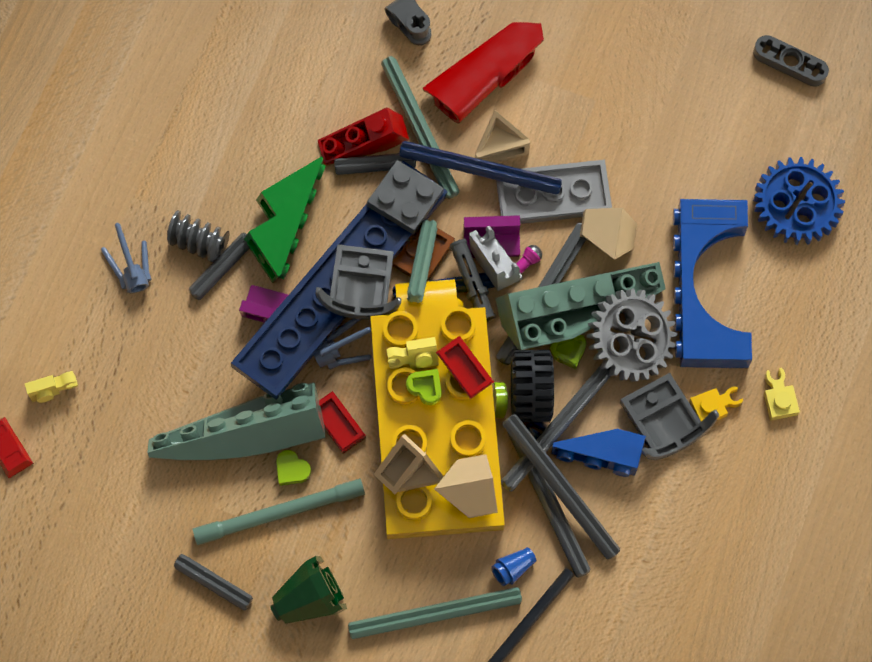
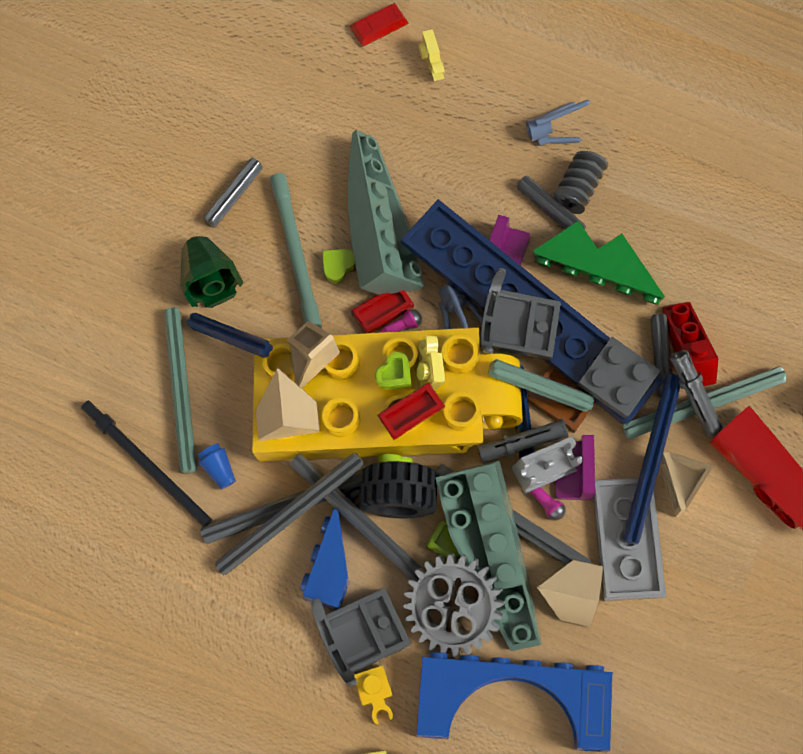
camera: 95 degrees right, 0 degrees up
(349, 393) = (410, 319): none -> dark pink piece
(382, 560) = (230, 335): none -> dark blue axle
(411, 130) = (692, 383): none -> dark grey pin

